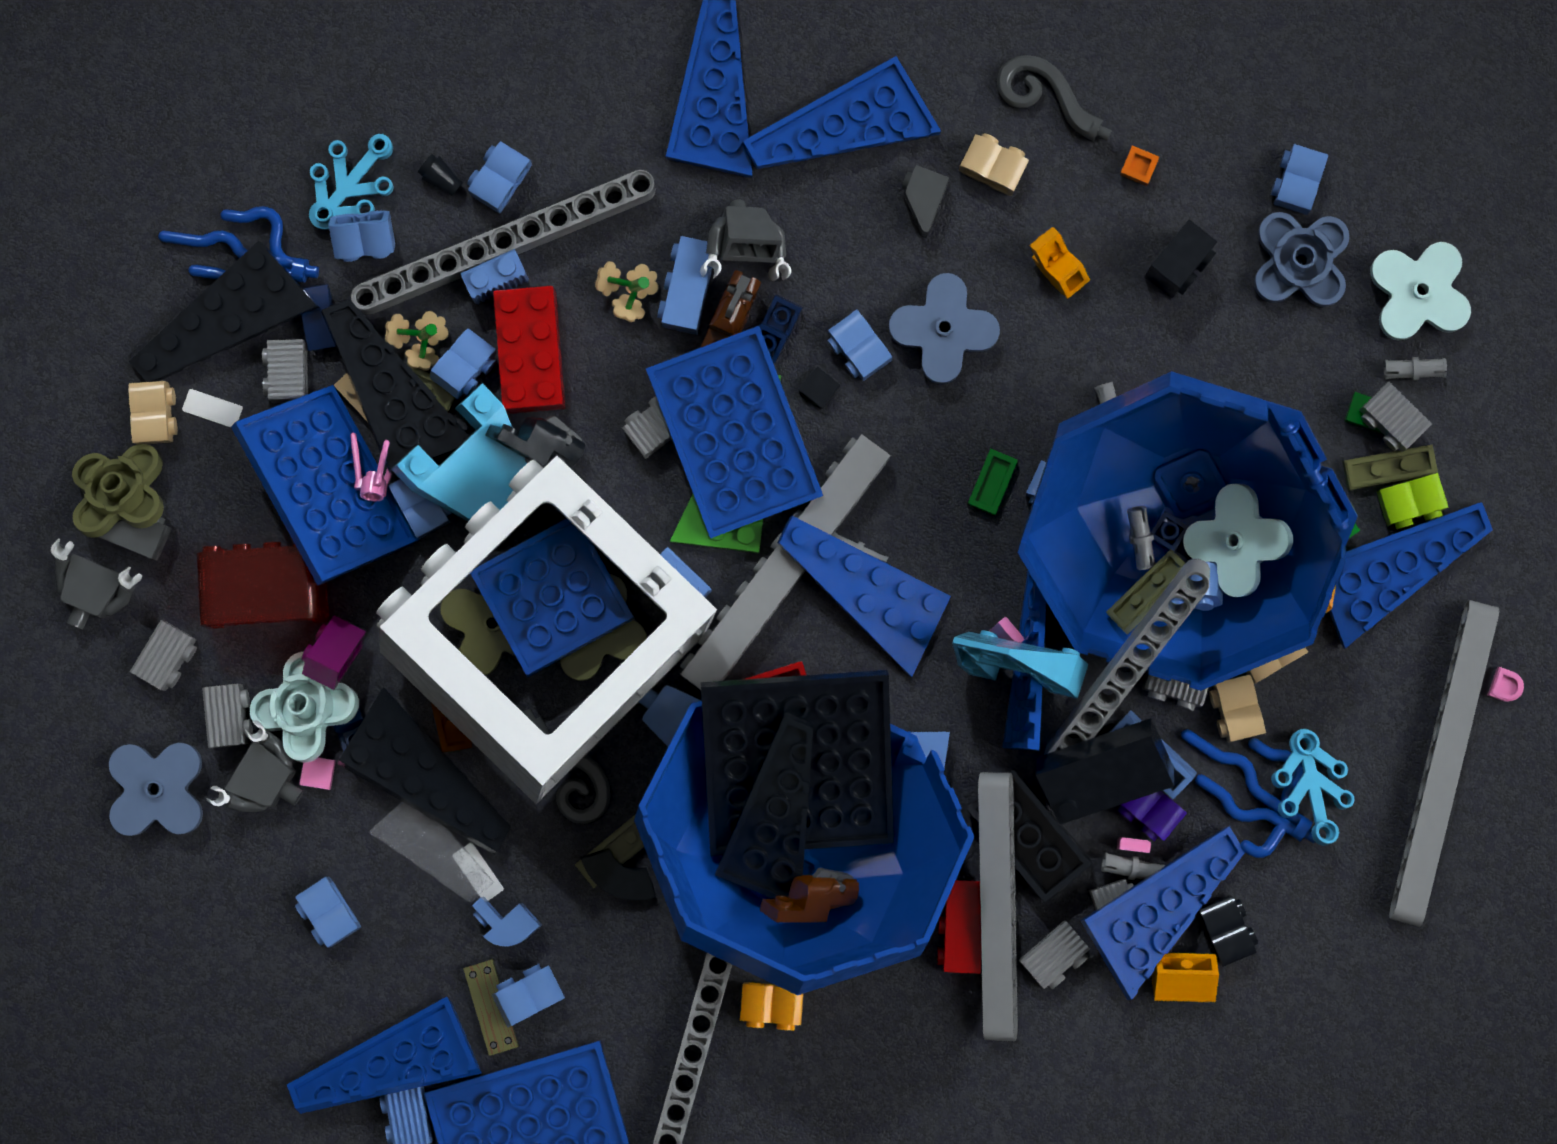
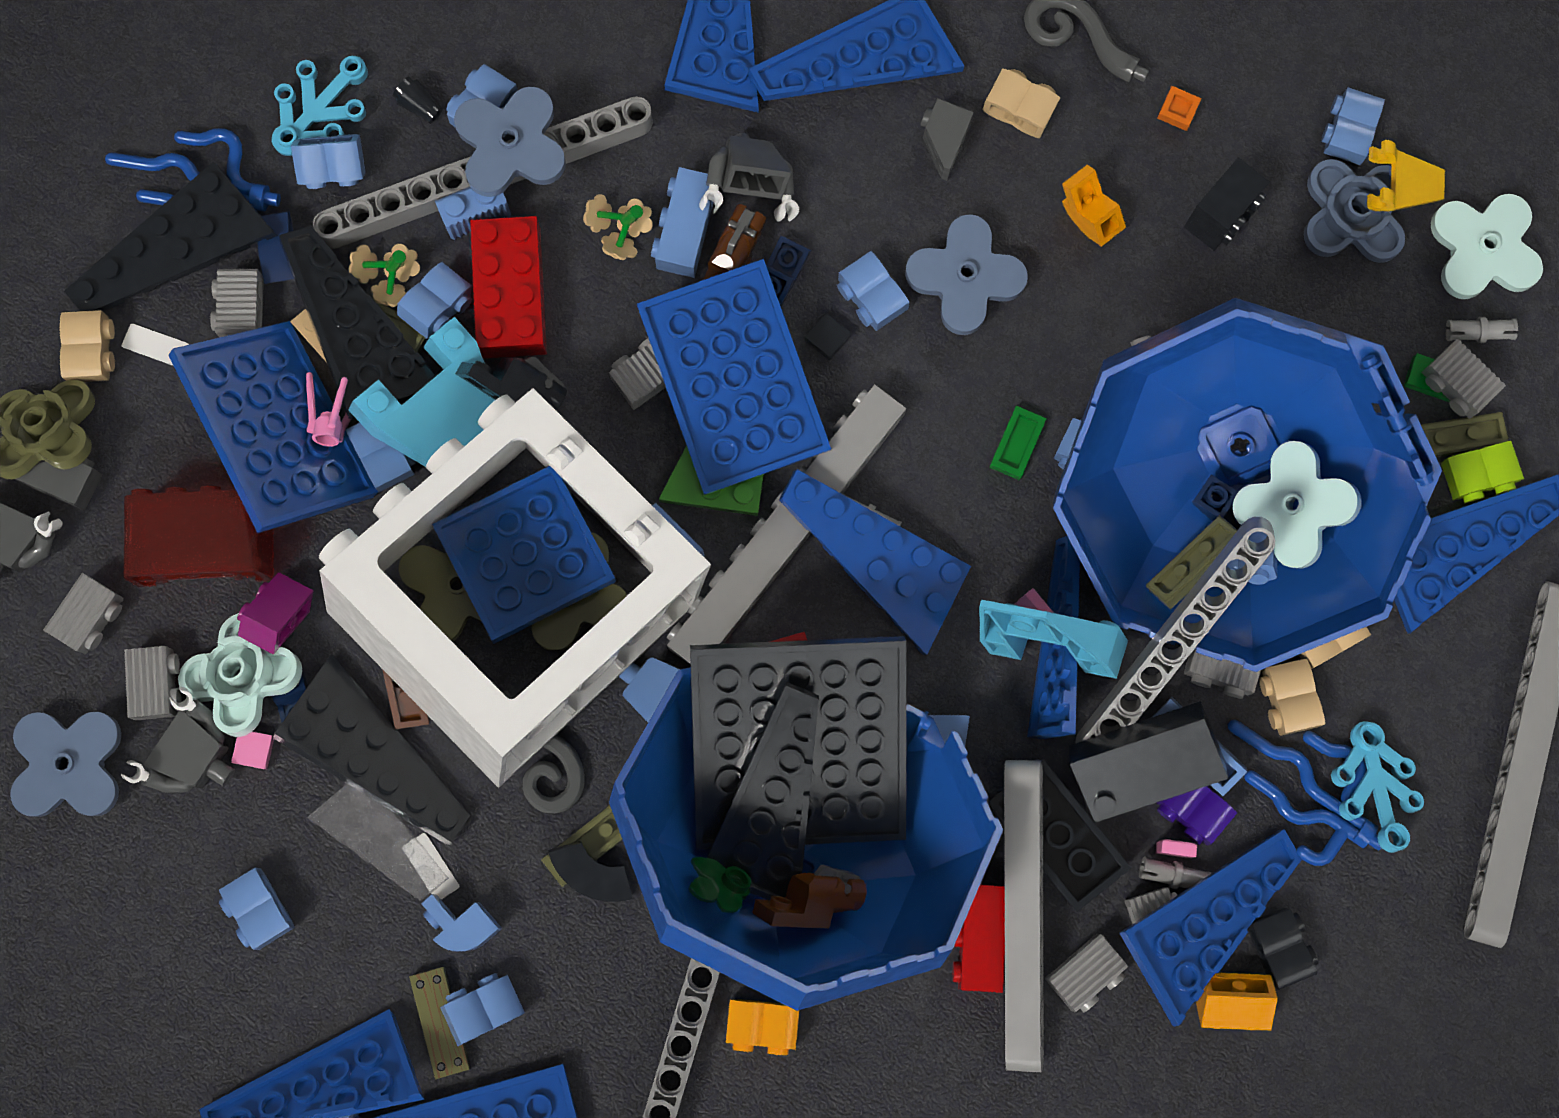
camera: 10 degrees left, 5 degrees down
(545, 231) = (498, 162): none -> sand blue plant
(731, 886) = (719, 884): none -> dark green plate
(1141, 537) = (1185, 502): light grey pin -> none
(1352, 231) = (1412, 180): none -> yellow flag

